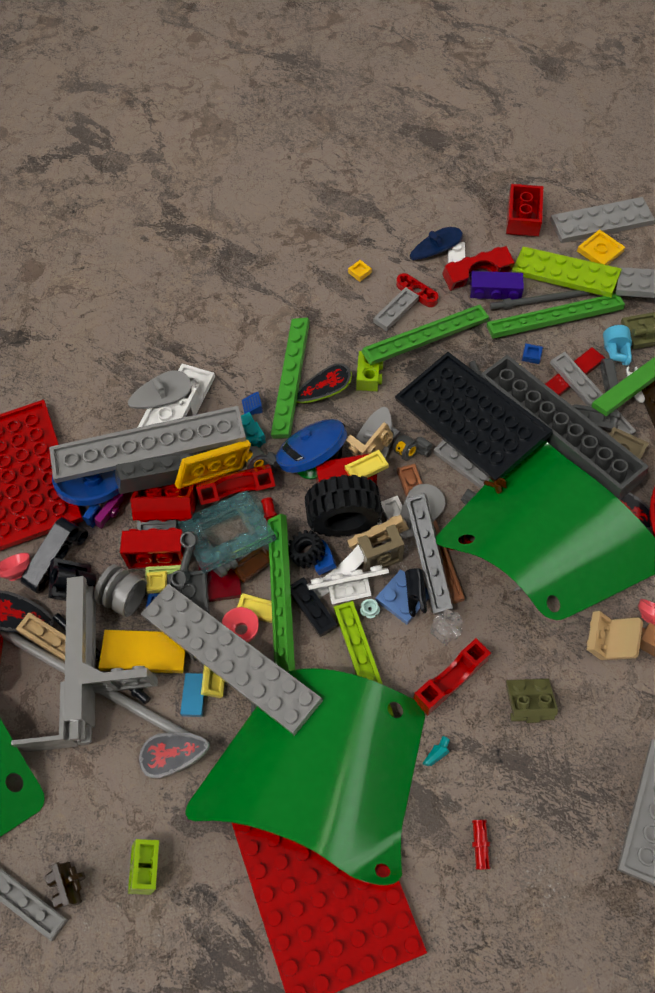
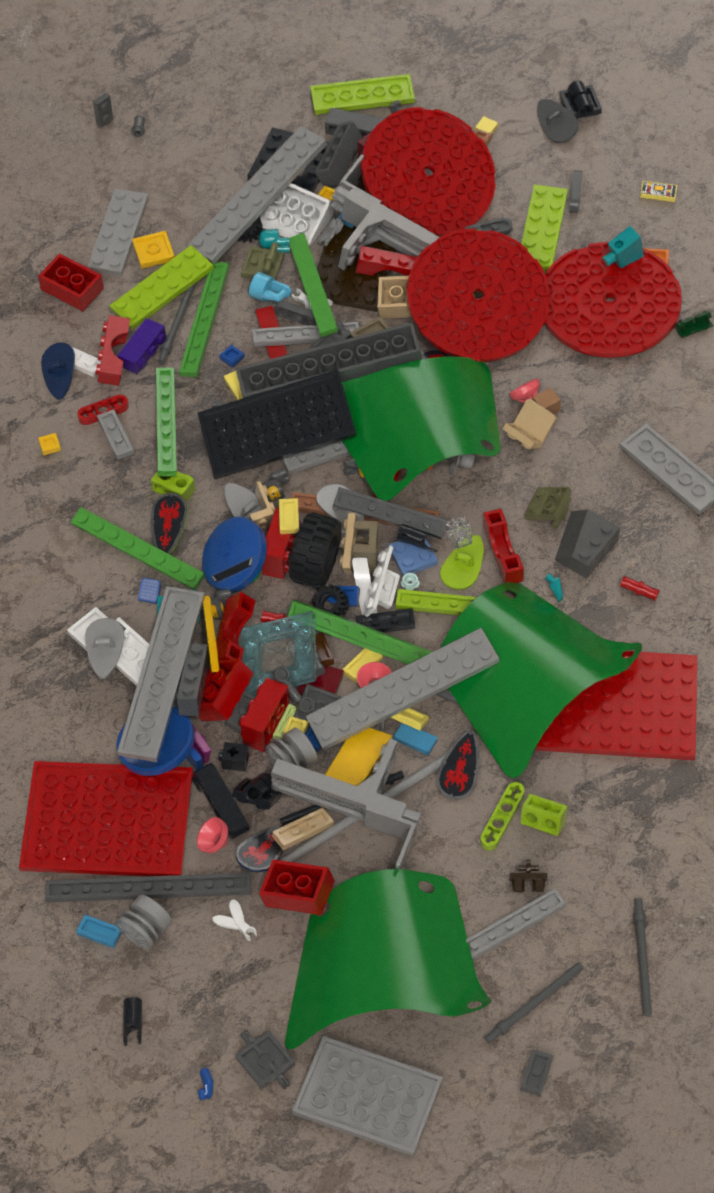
camera: 65 degrees left, 5 degrees down
(107, 552) = (234, 756): none -> black brick
(135, 822) = (505, 817): none -> lime beam
(418, 649) = (463, 565): none -> lime shield
(497, 484) = (360, 435): reddish brown hand -> none
(507, 759) = (586, 541): none -> dark grey wedge

